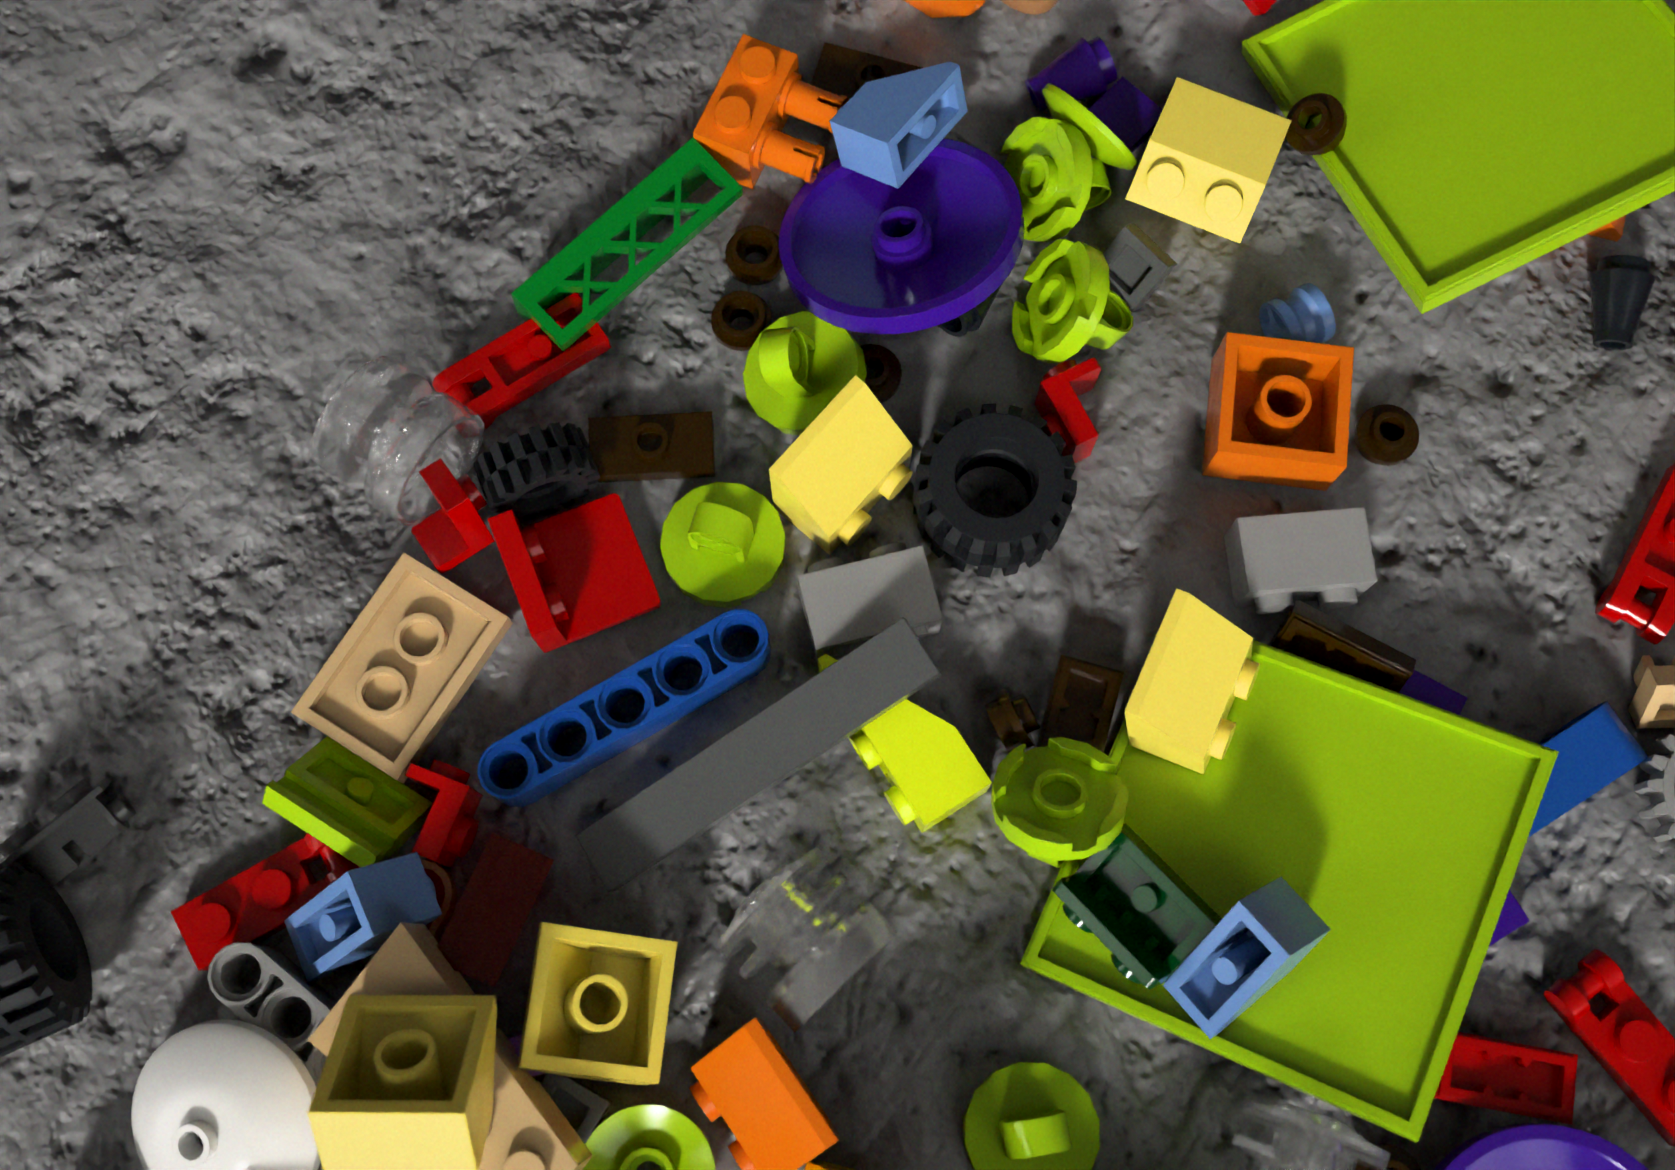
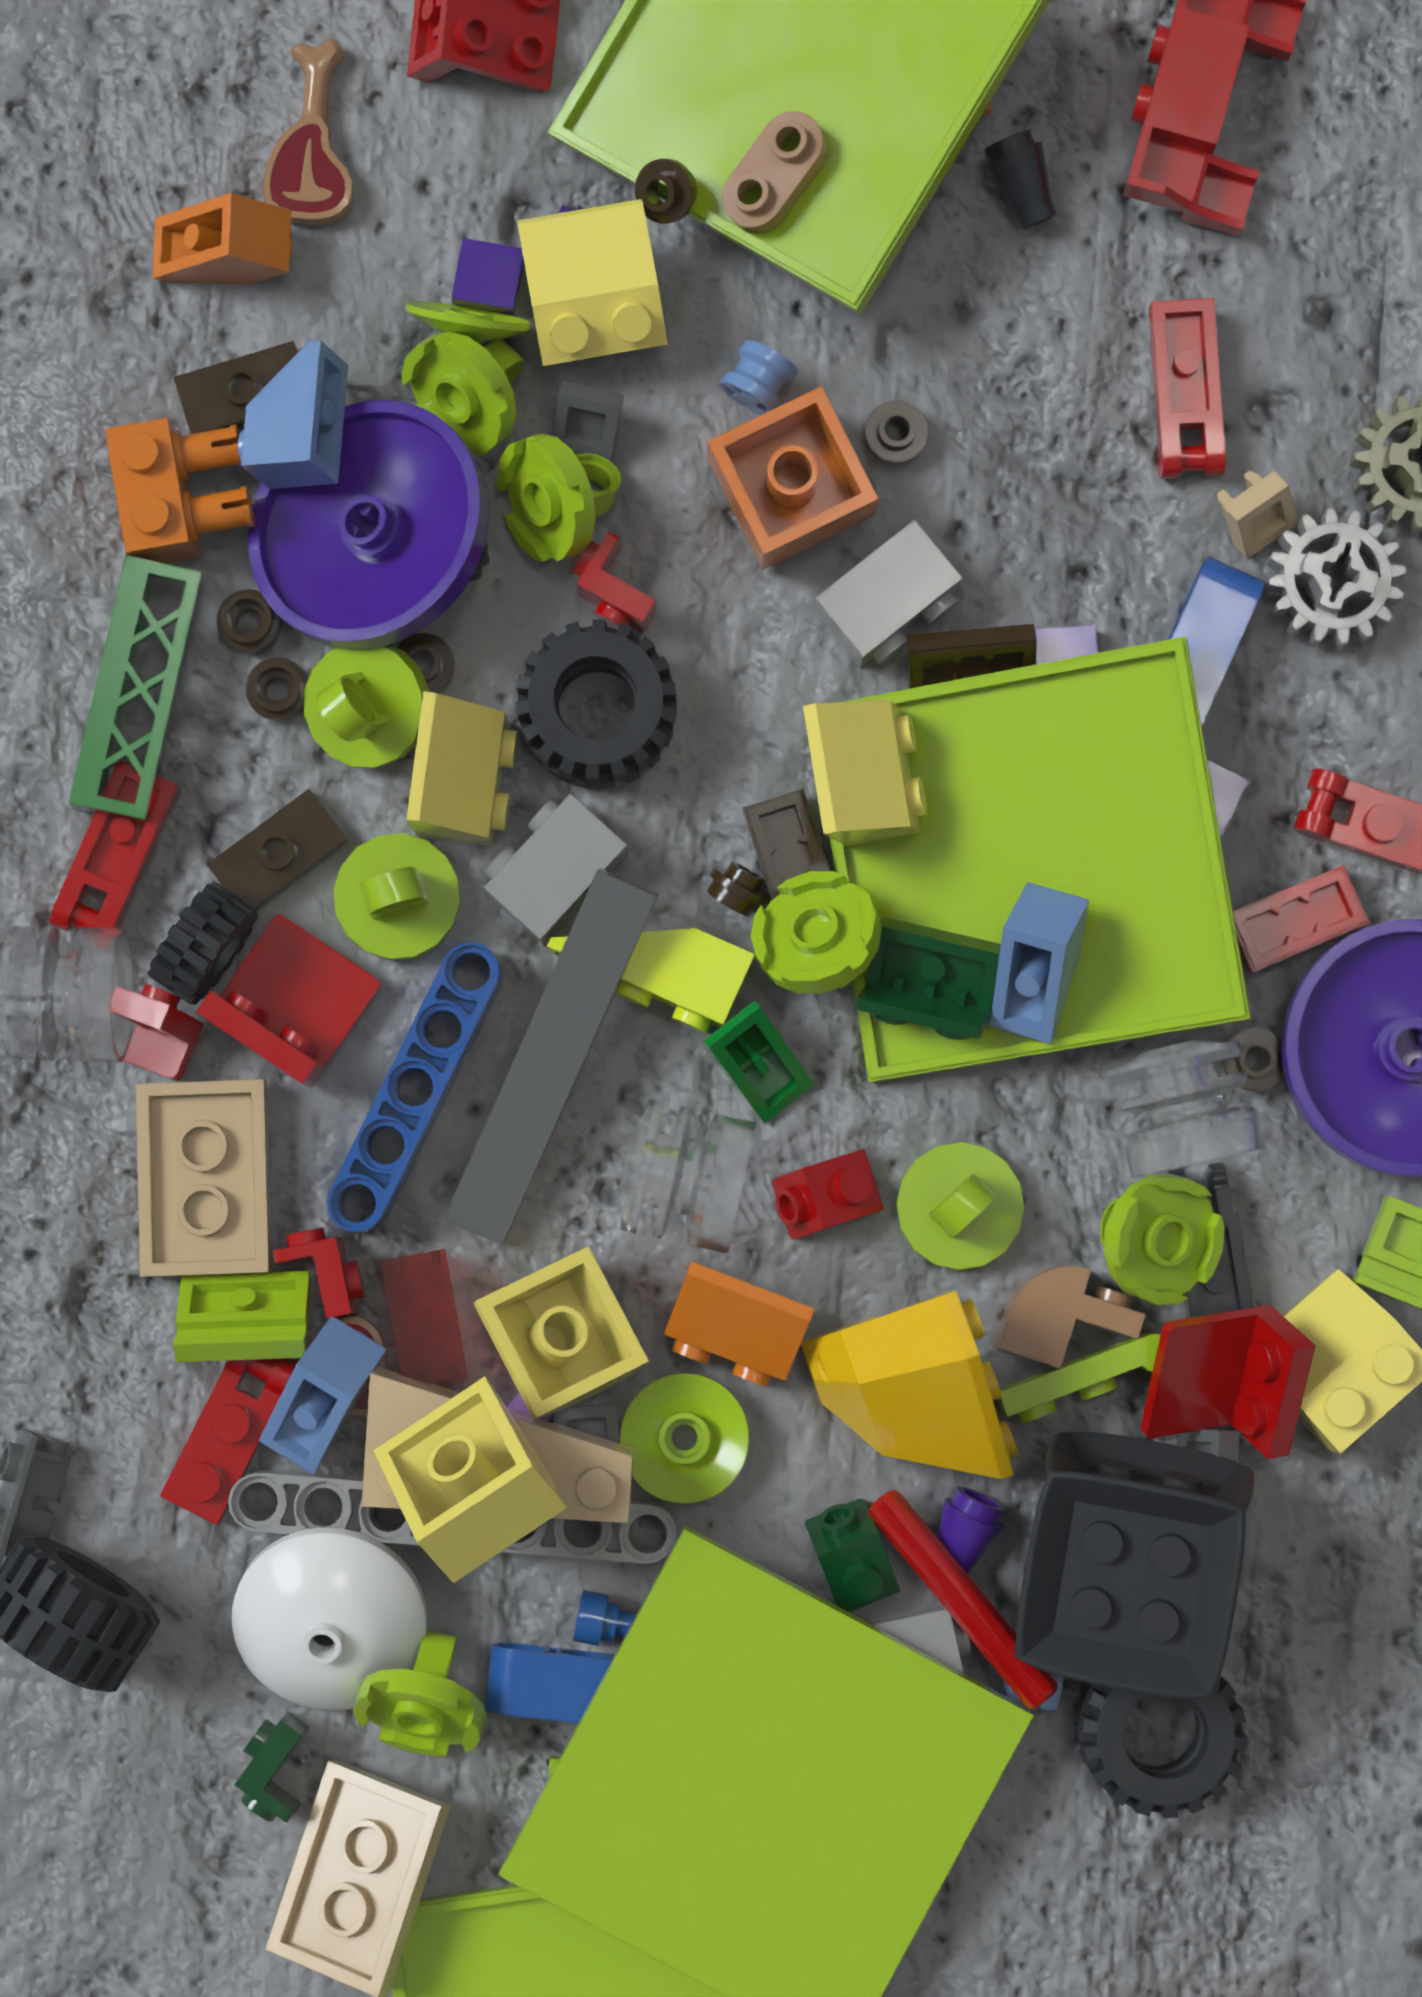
camera: 35 degrees left, 10 degrees up
(918, 1039) = (826, 1194): none -> red bracket
(934, 879) = (758, 1062): none -> green slope
(1079, 71) = (418, 265): dark purple cone -> none
(1421, 159) = (778, 172): none -> medium nougat plate

